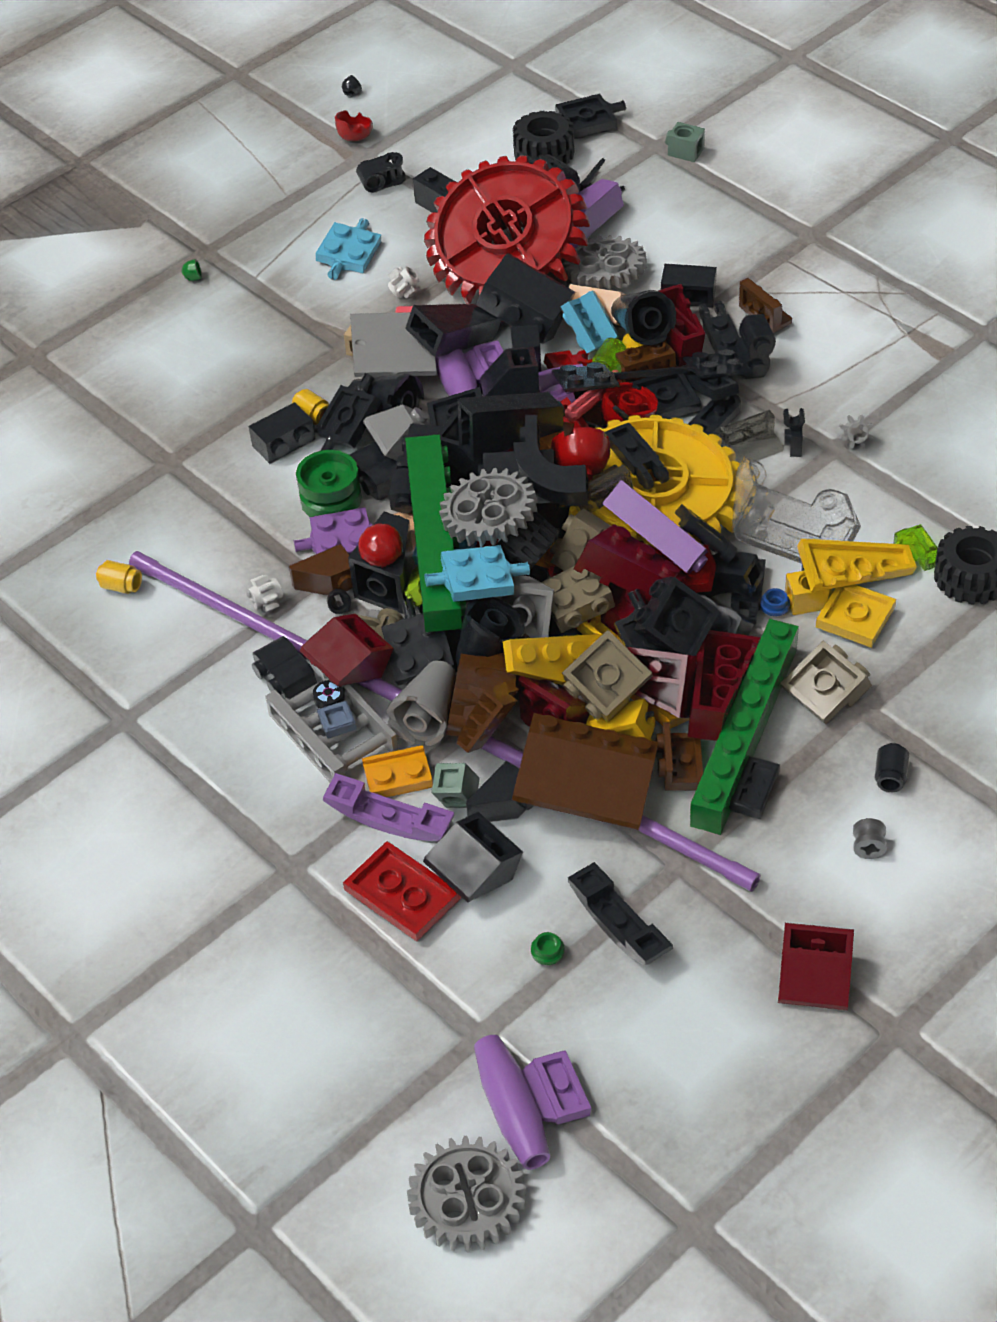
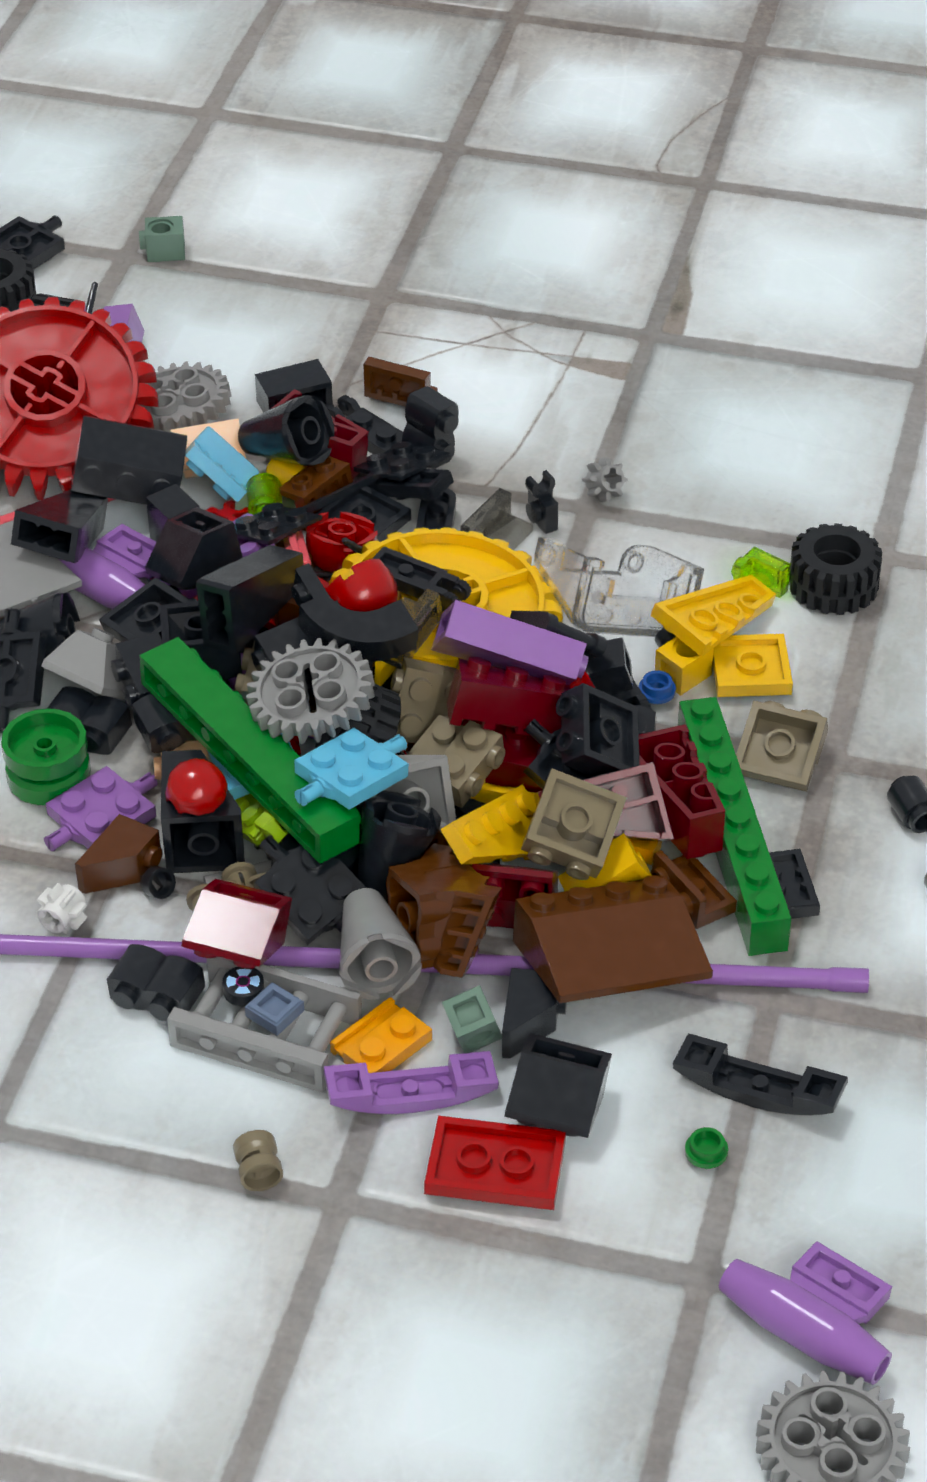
camera: 35 degrees left, 5 degrees down
(256, 814) = (258, 1161): none -> dark tan wheel

